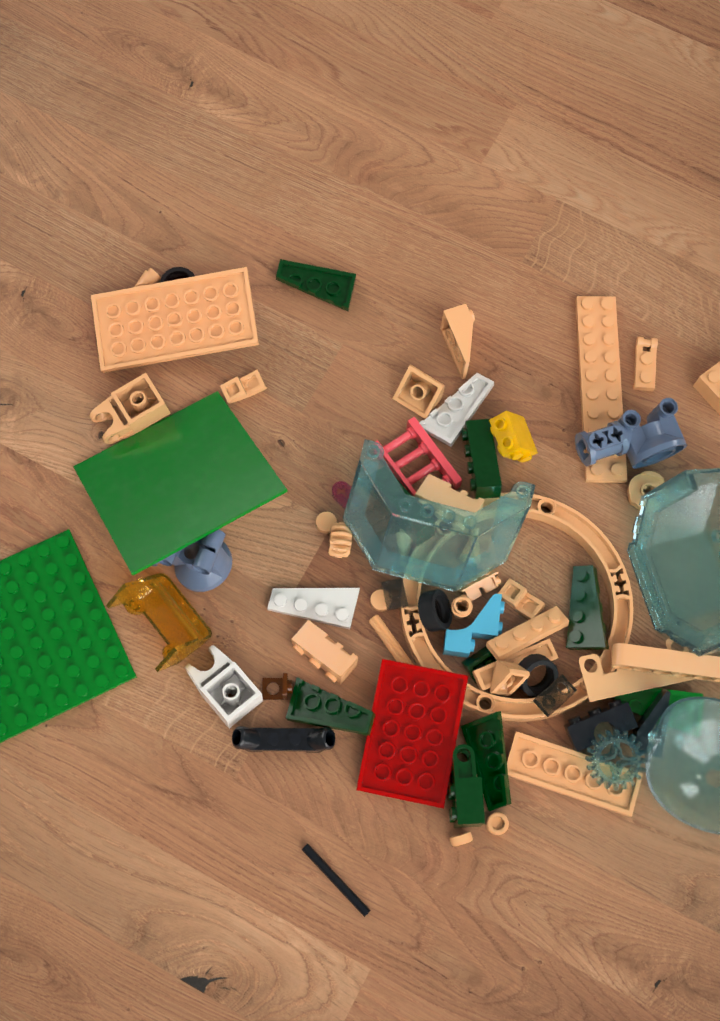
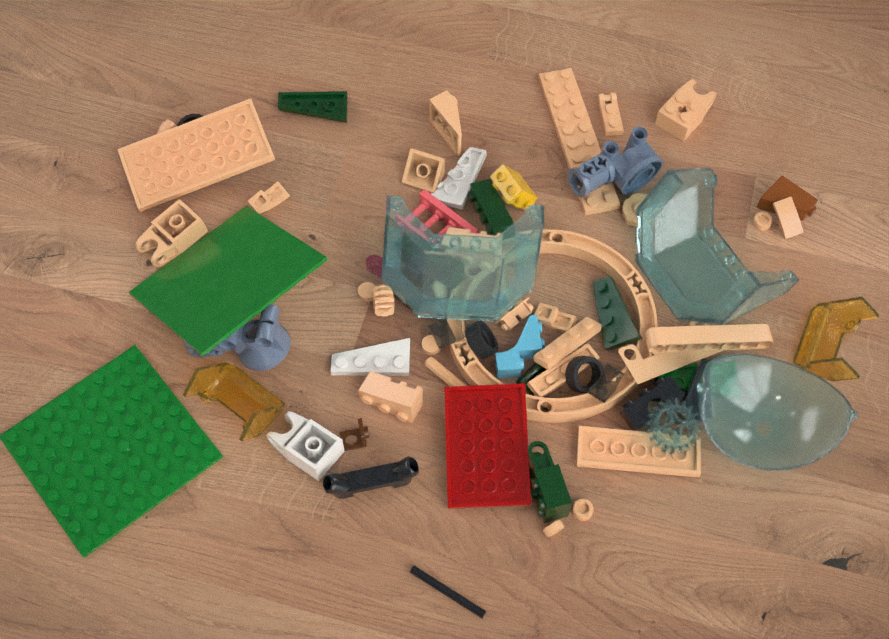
camera: 10 degrees left, 10 degrees down
(324, 709) = (396, 444): dark green wing -> none
(462, 603) = (504, 333): light nougat cone -> none
(487, 741) = (557, 437): dark green wing -> none
(507, 678) = (560, 380): light nougat slope -> none

